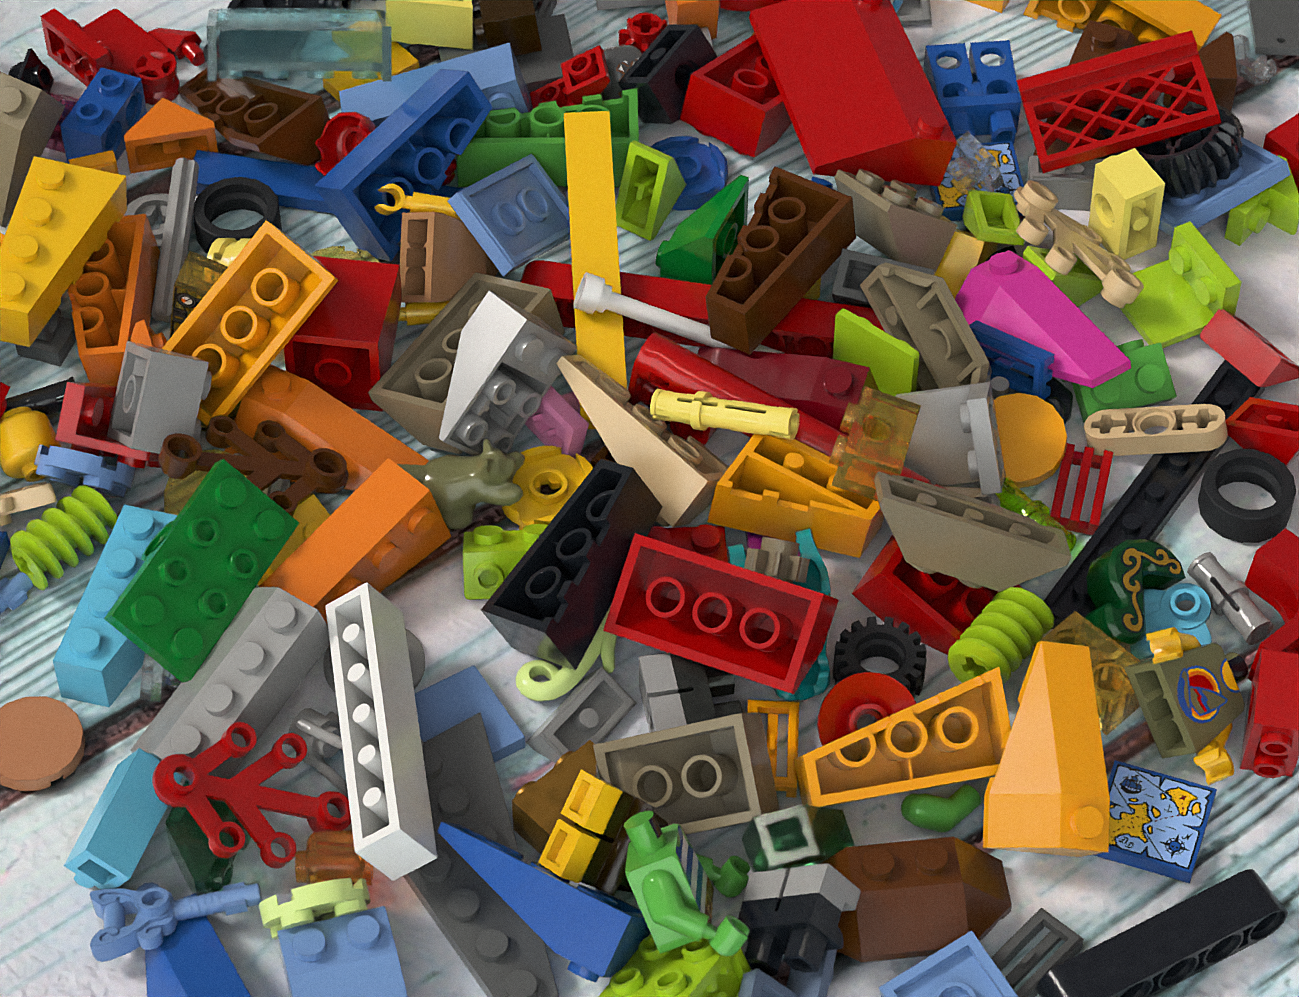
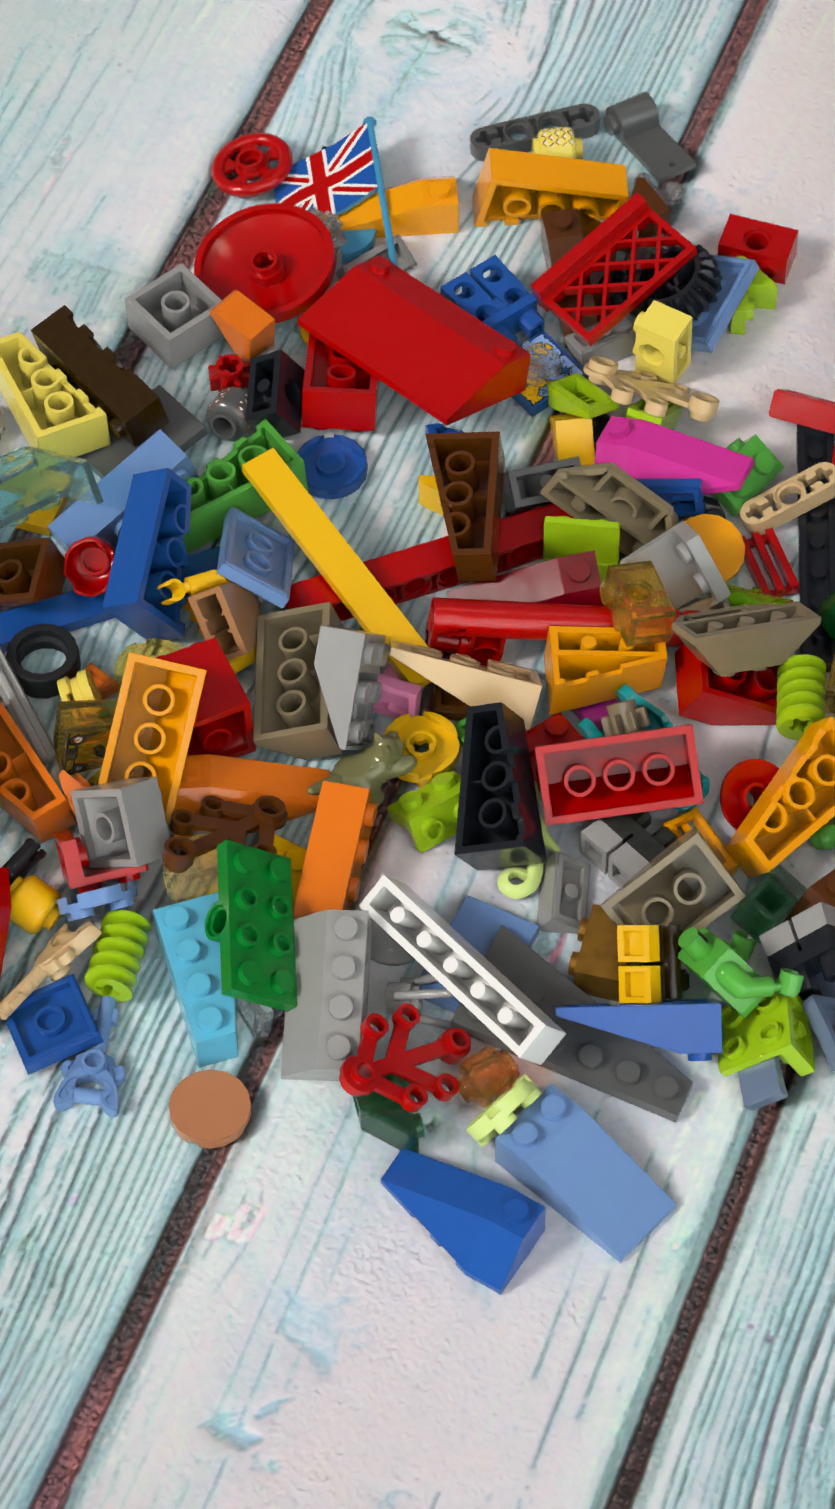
camera: 30 degrees left, 5 degrees up
(119, 825) = (325, 1126): medium azure brick -> none
(157, 914) = (395, 1172): medium blue piece -> none
(582, 76) = (218, 433): red slope -> none
(597, 296) = (365, 591): white piece -> none
(647, 190) = (328, 488): lime slope -> none
(706, 236) = (396, 511): green slope -> none
(707, 411) = (522, 632): light yellow pin -> none
(885, 642) = (727, 736): black tyre -> none
(895, 220) = (525, 433): dark tan slope -> none
(1183, 290) = (743, 384): lime bracket -> none

